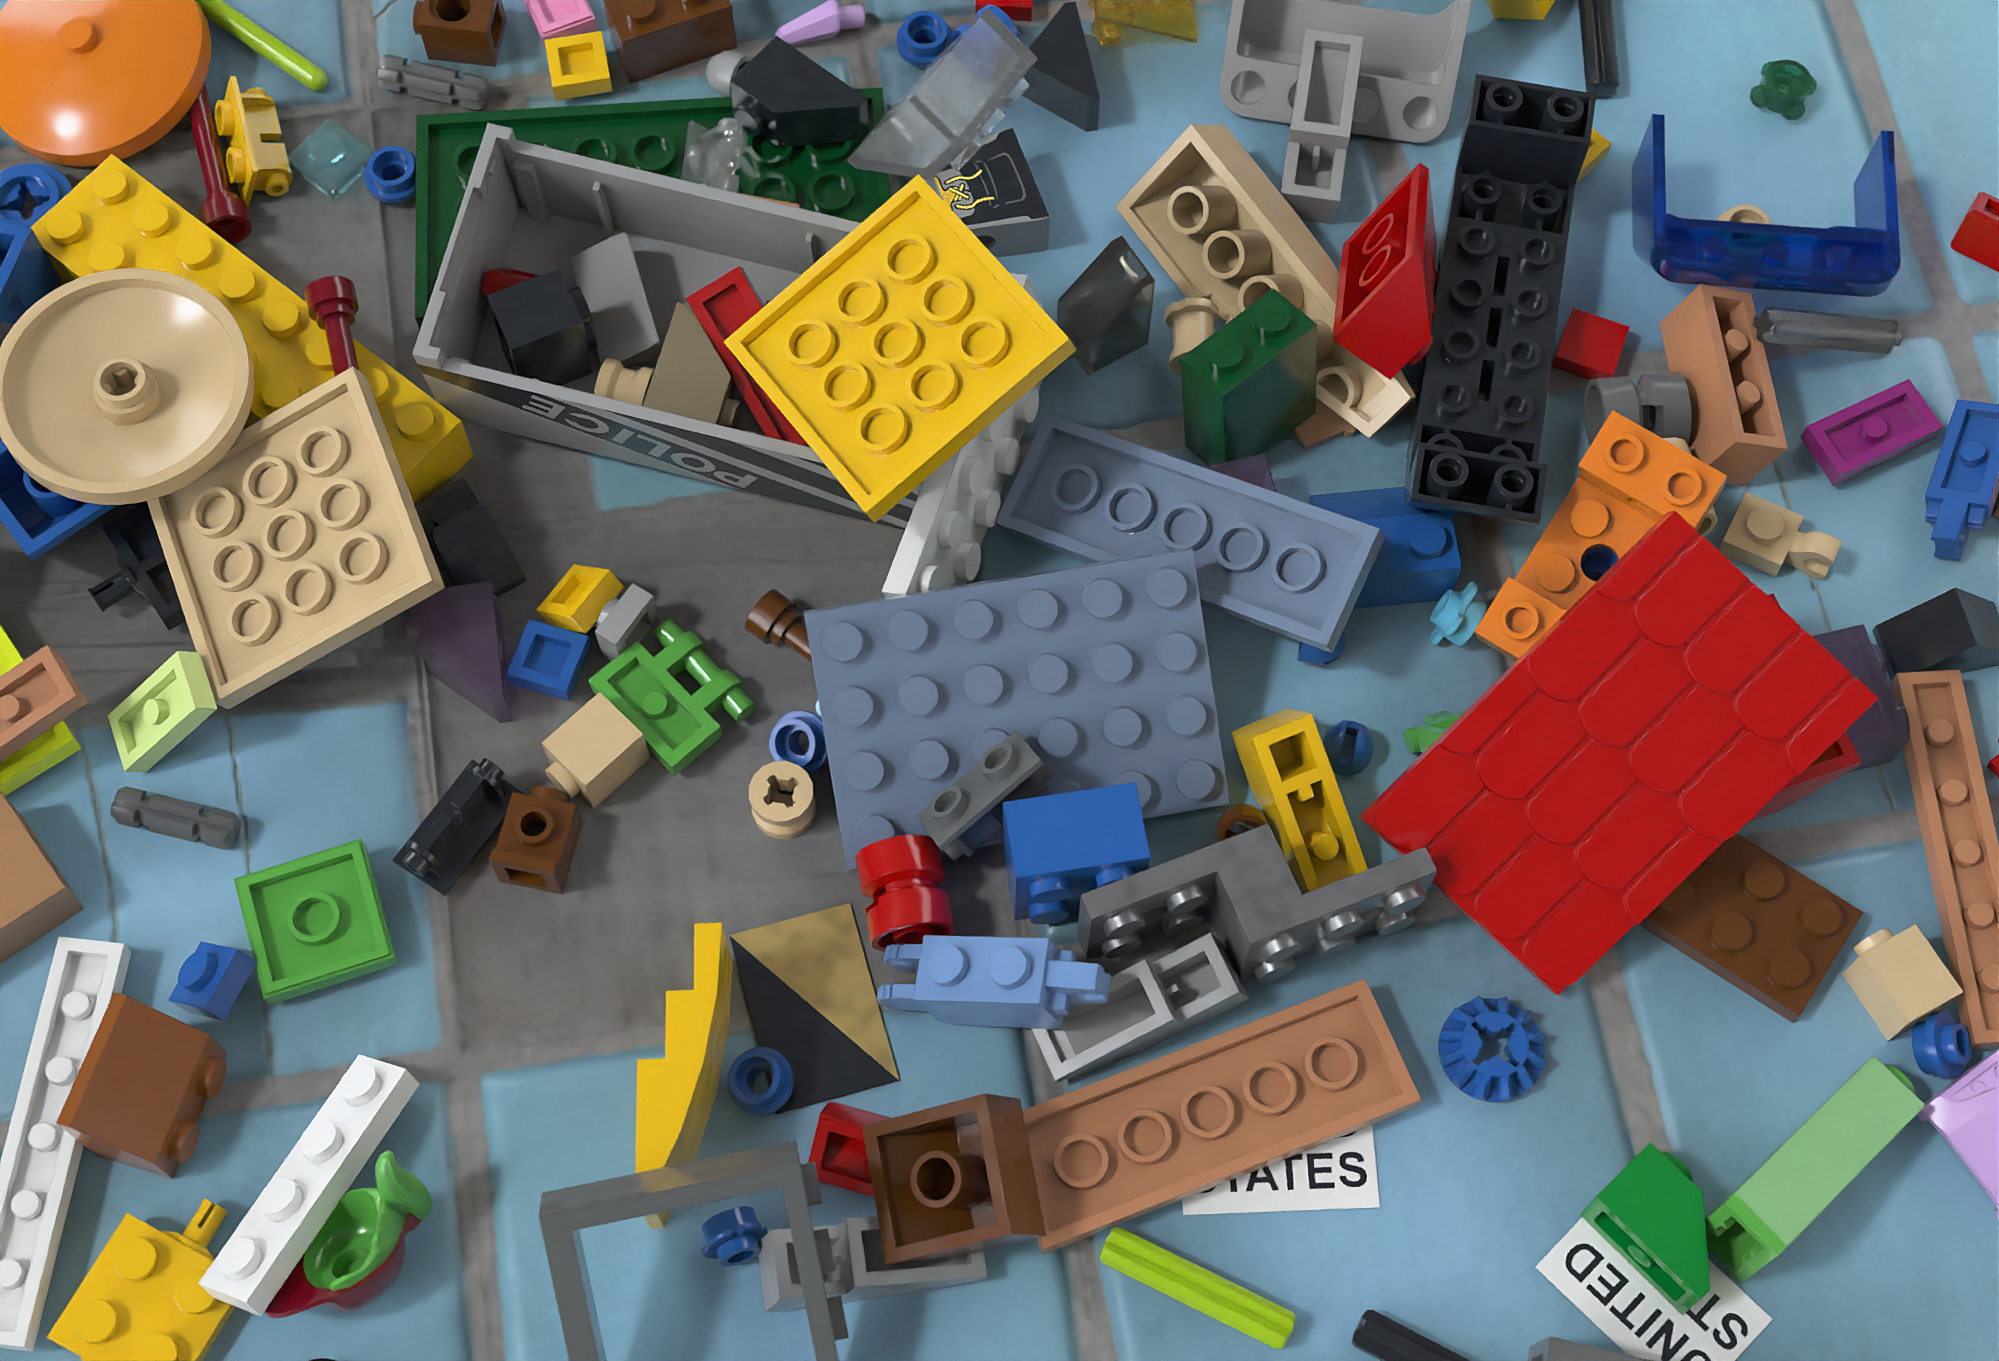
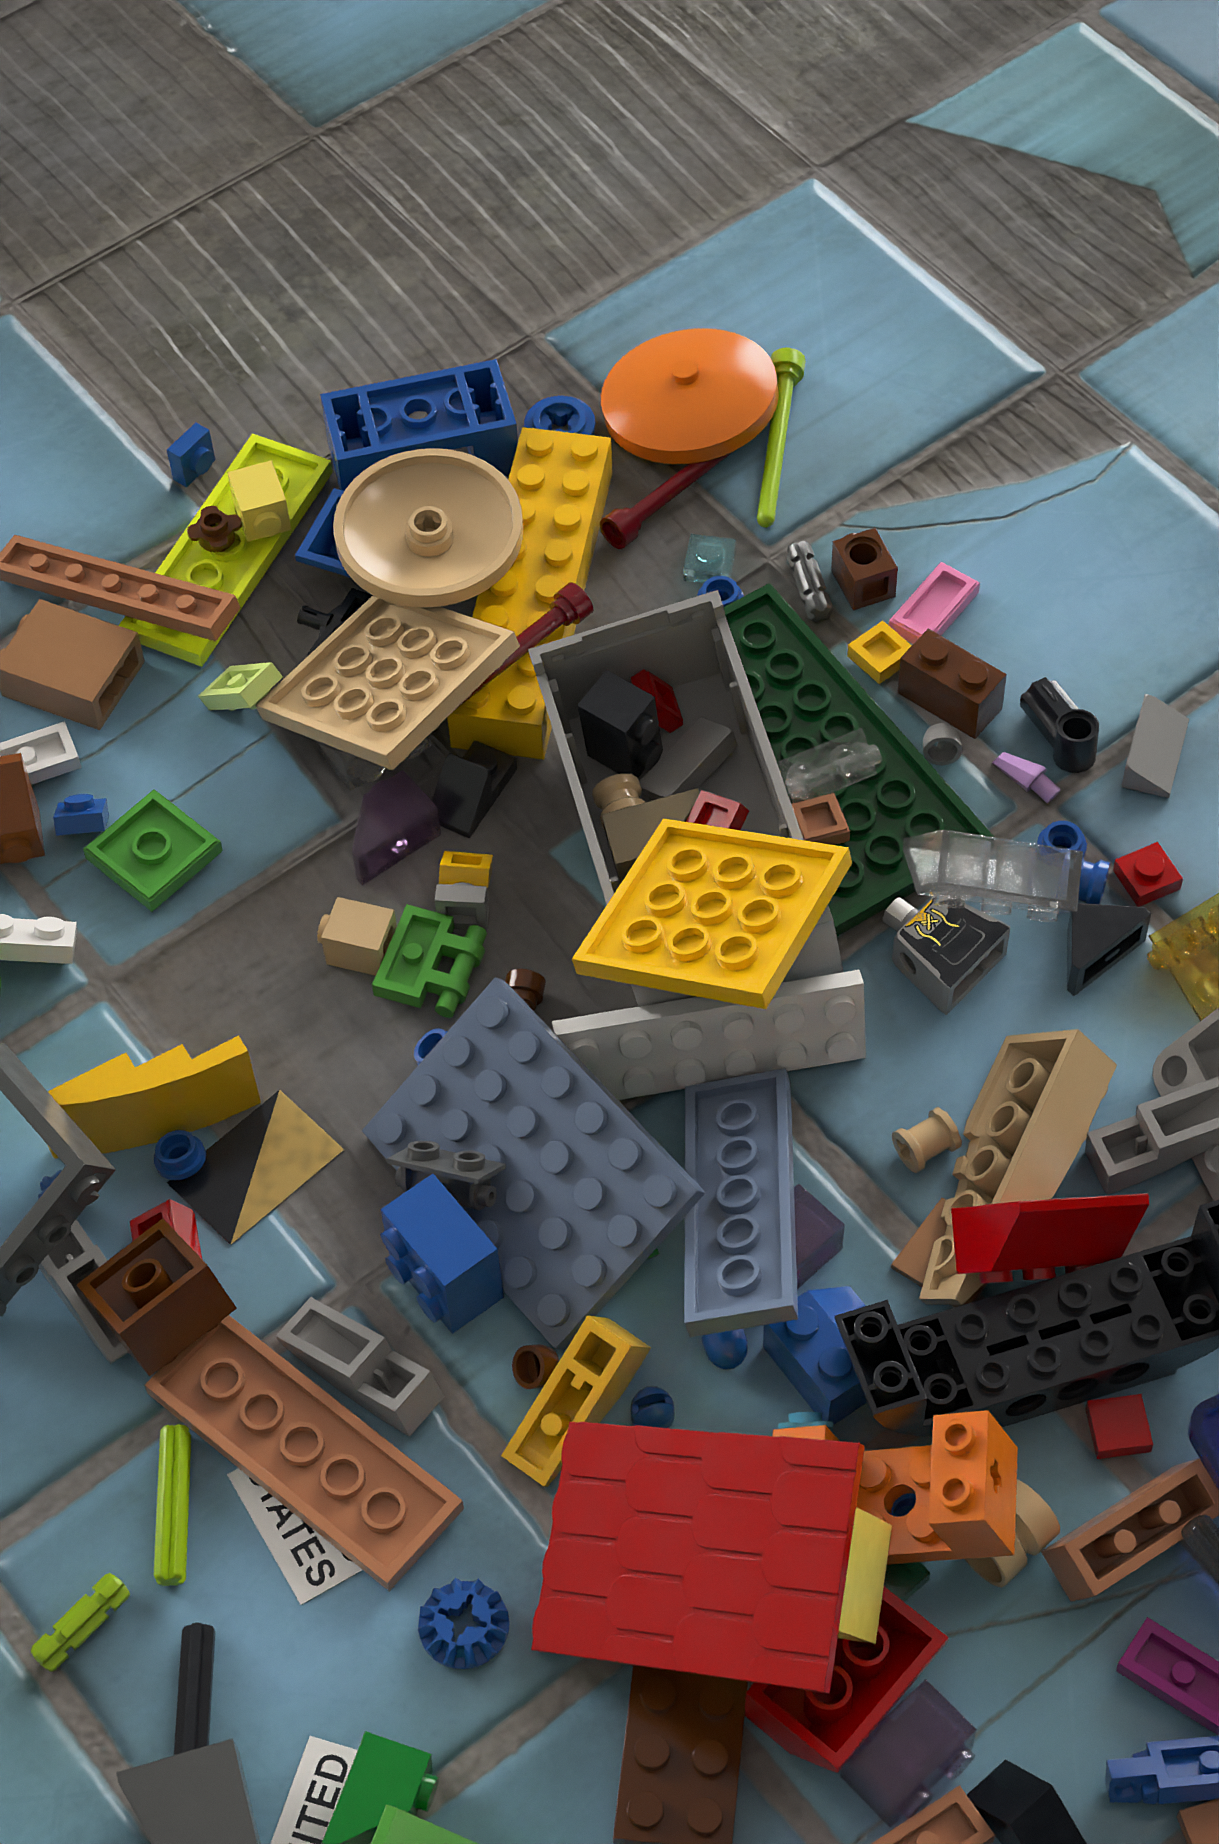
camera: 65 degrees right, 10 degrees down
(175, 818) = (182, 740): dark grey axle -> none
(246, 122) = (675, 520): yellow hinge -> none
(458, 826) = (263, 891): black hinge -> none
(543, 859) = (277, 939): reddish brown brick -> none
(548, 660) = (410, 876): blue plate -> none
(787, 814) = (389, 1077): tan wheel -> none
(796, 100) = (928, 777): black slope -> none
(903, 882) = (352, 1174): red wheel -> none
(992, 981) = (318, 1252): medium blue hinge -> none
(1108, 307) = (899, 1066): clear smoke slope -> none
(1250, 381) = (889, 1181): dark green brick -> none
(1253, 905) = (468, 1390): flat silver bracket -> none
(1656, 403) = (1061, 1461): dark grey wheel -> none
(1769, 535) = (1034, 1639): tan plate -> none

